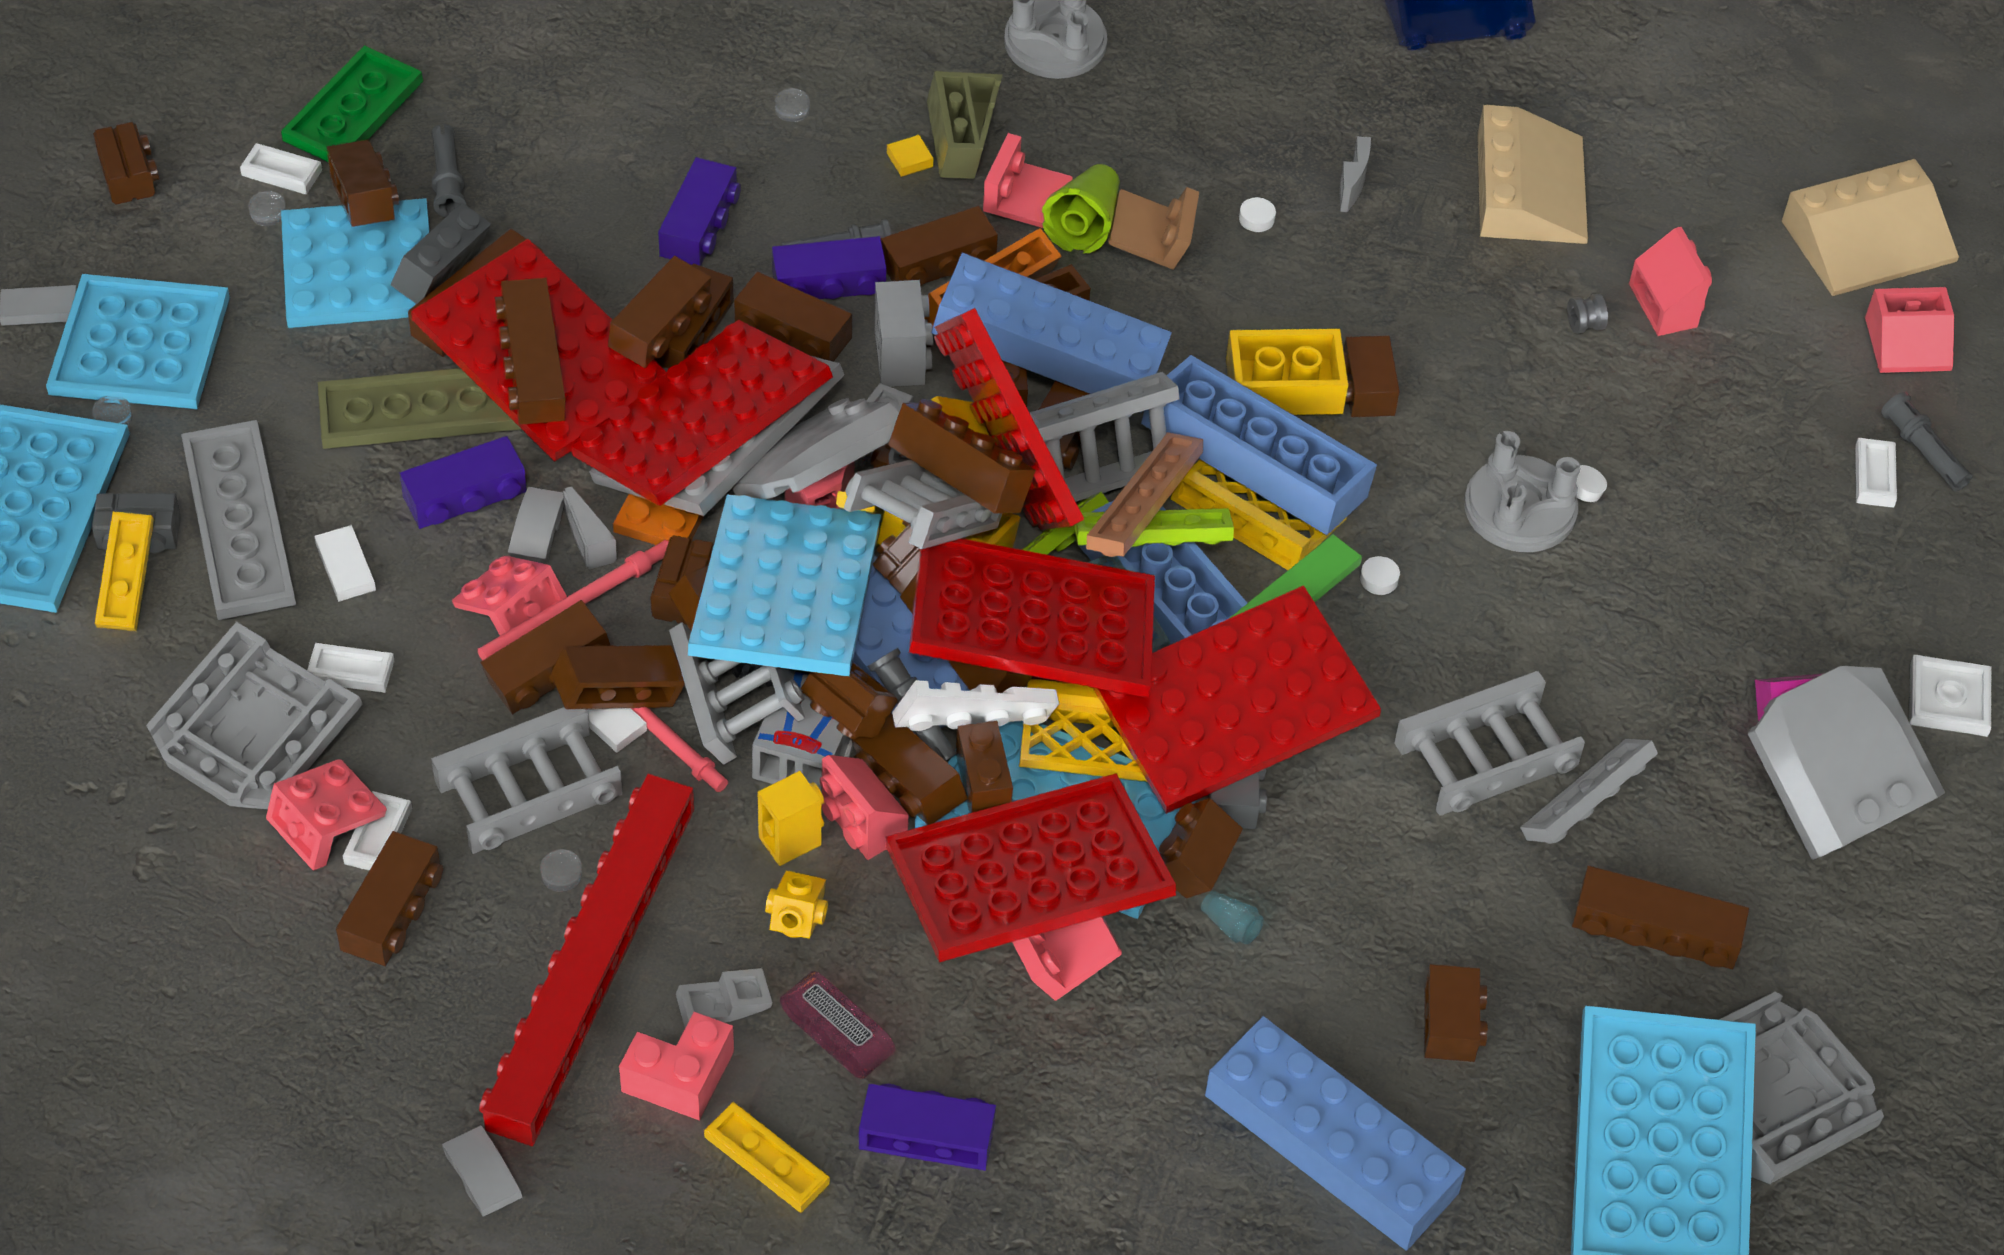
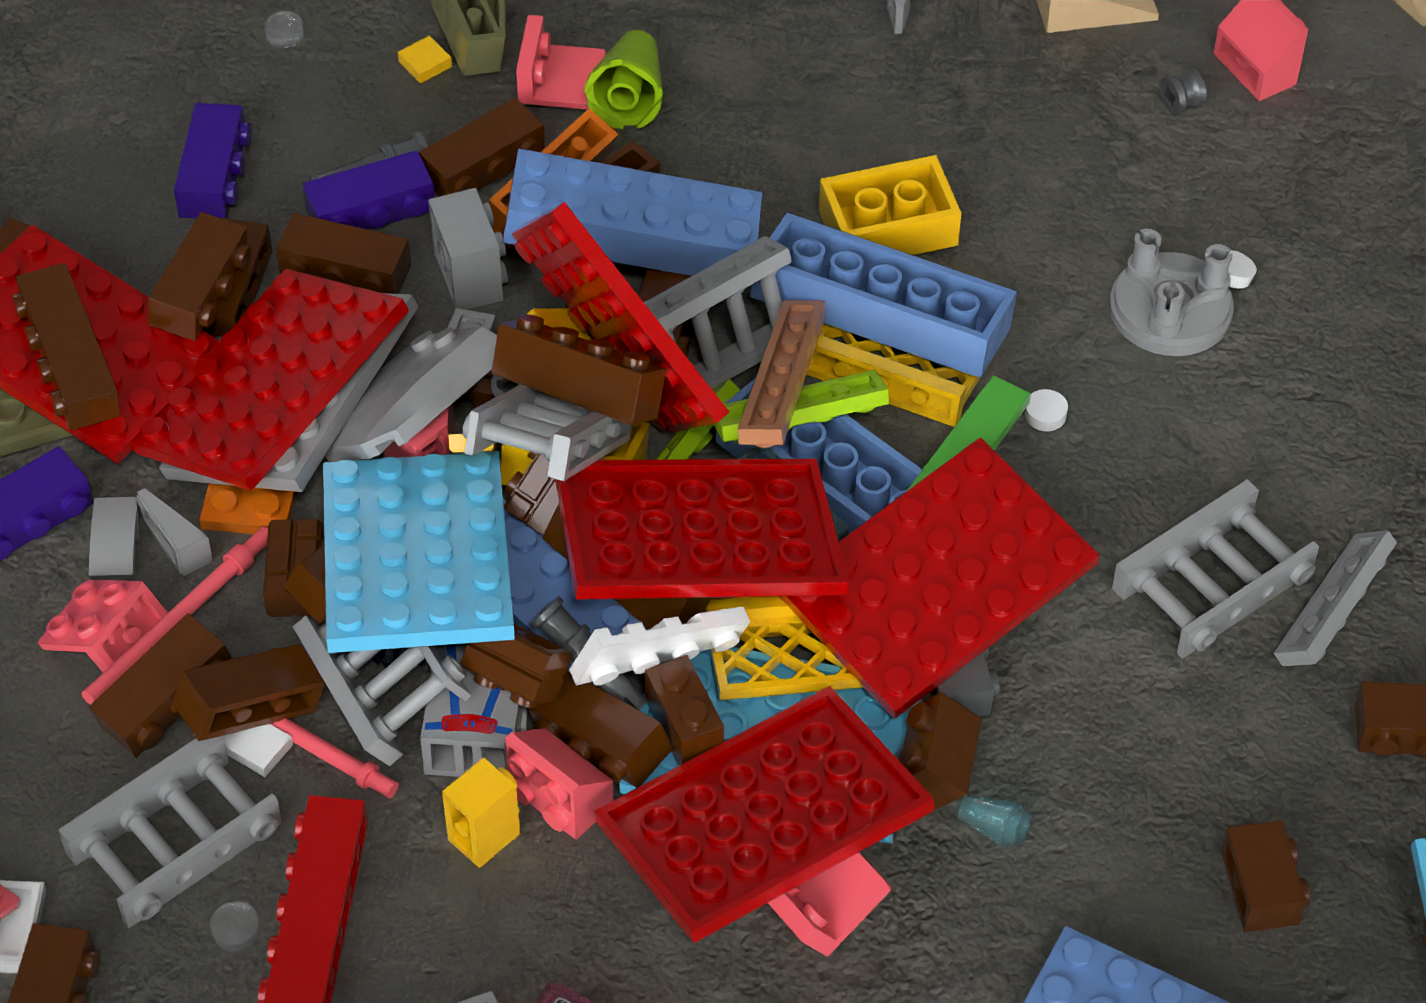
camera: 10 degrees left, 0 degrees up
(797, 905) = (514, 909): yellow brick -> none
(1153, 229) = (707, 88): medium nougat bracket -> none
(1257, 214) = (809, 53): white tile -> none
(1370, 376) = (982, 199): reddish brown brick -> none

